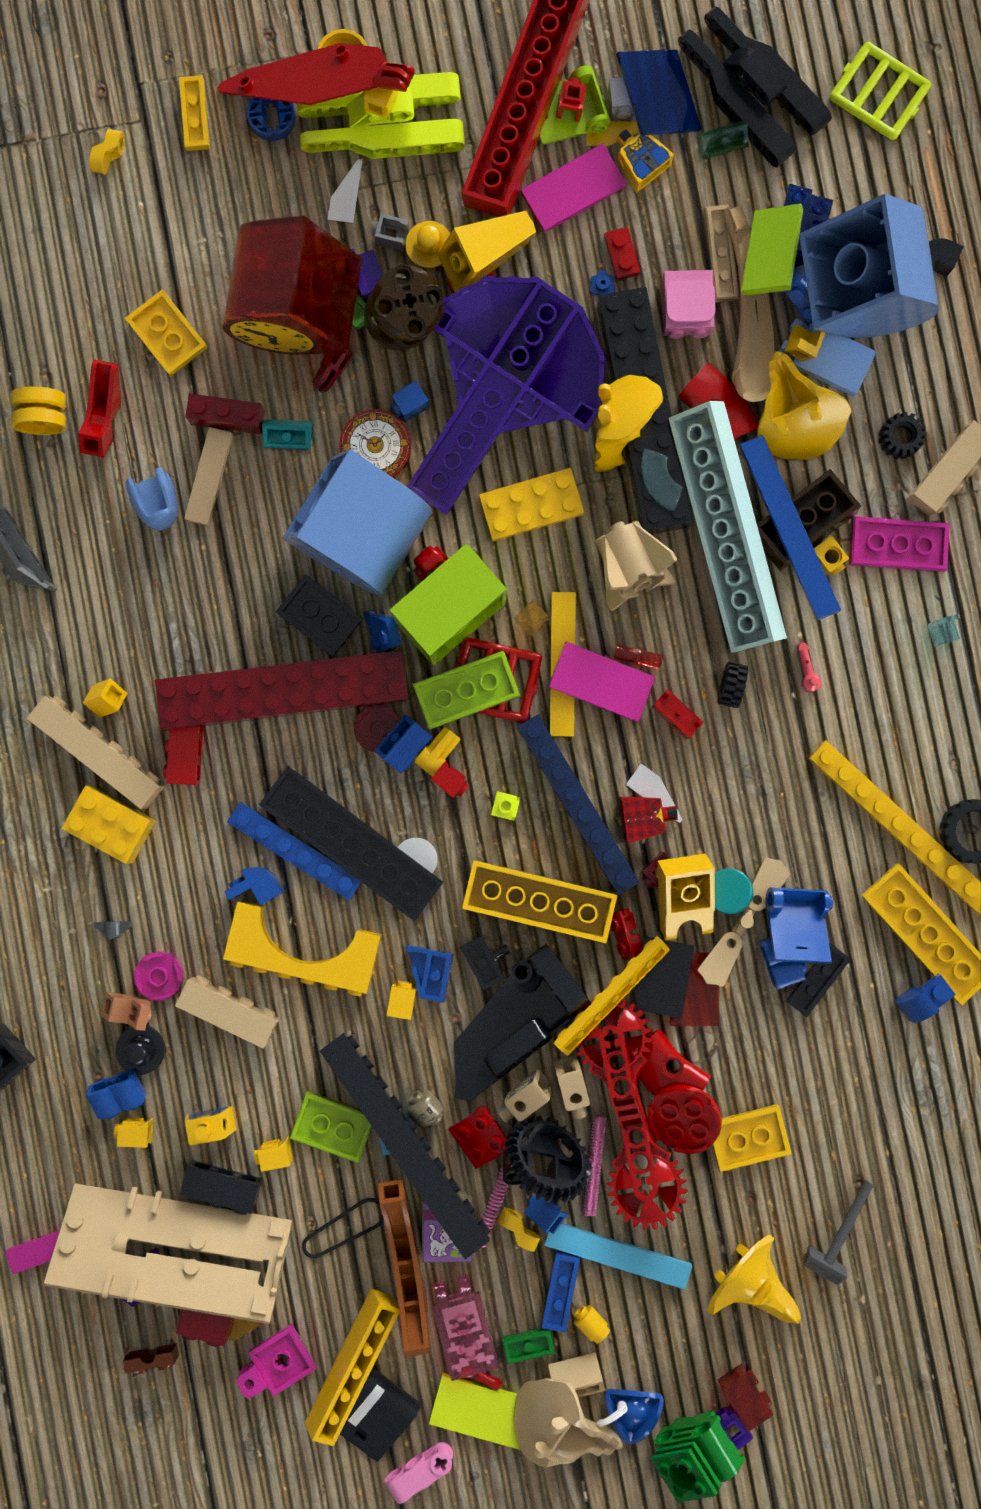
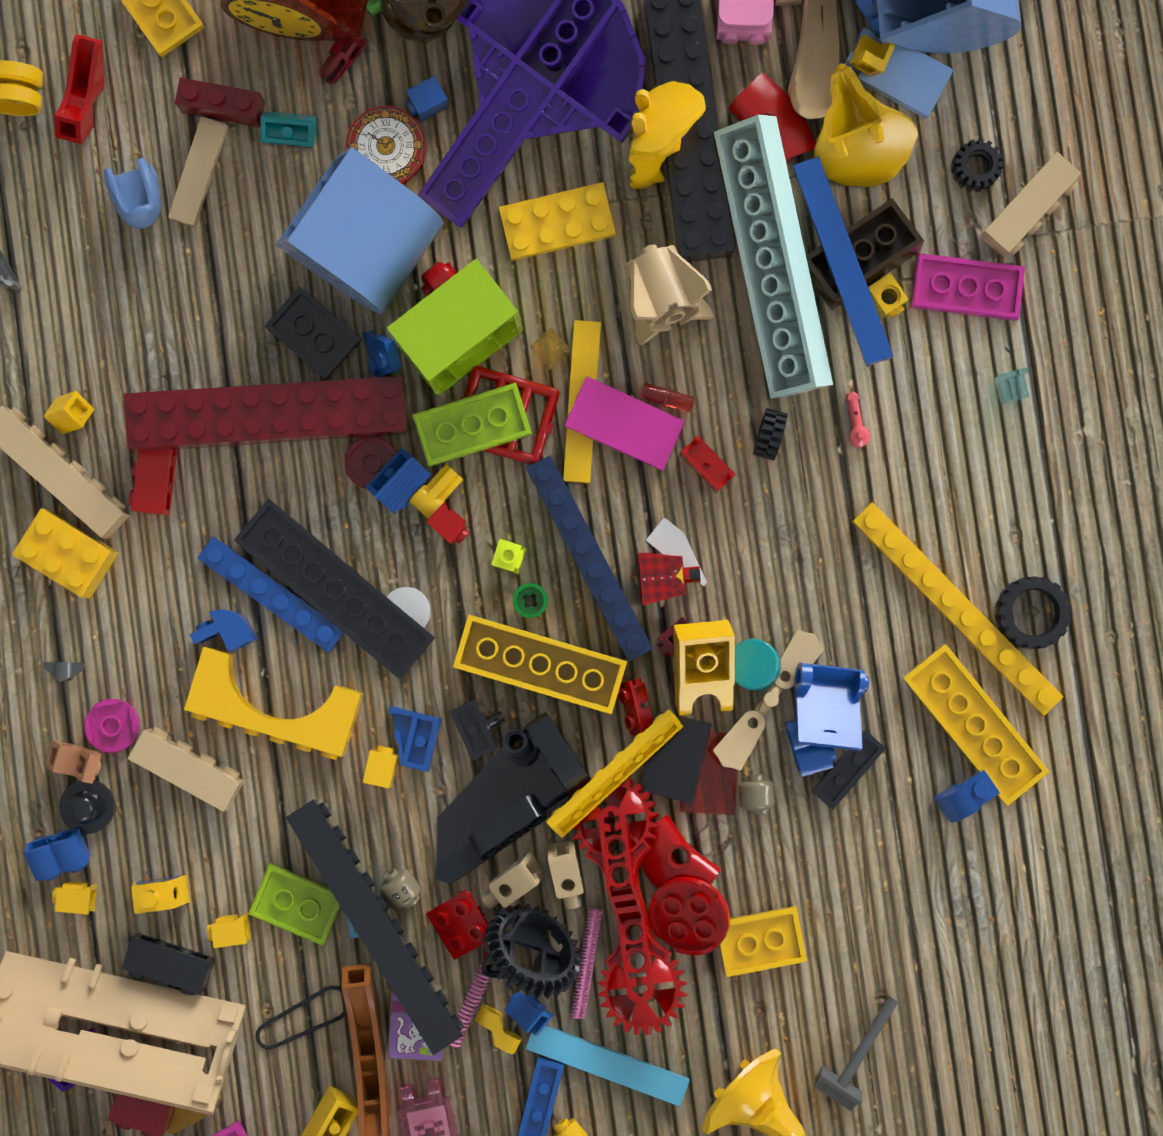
camera: 10 degrees right, 0 degrees up
(537, 843) = (519, 602): none -> green piece
(658, 480) = (698, 201): clear light blue tile -> none
(737, 1007) = (756, 795): none -> dark tan head

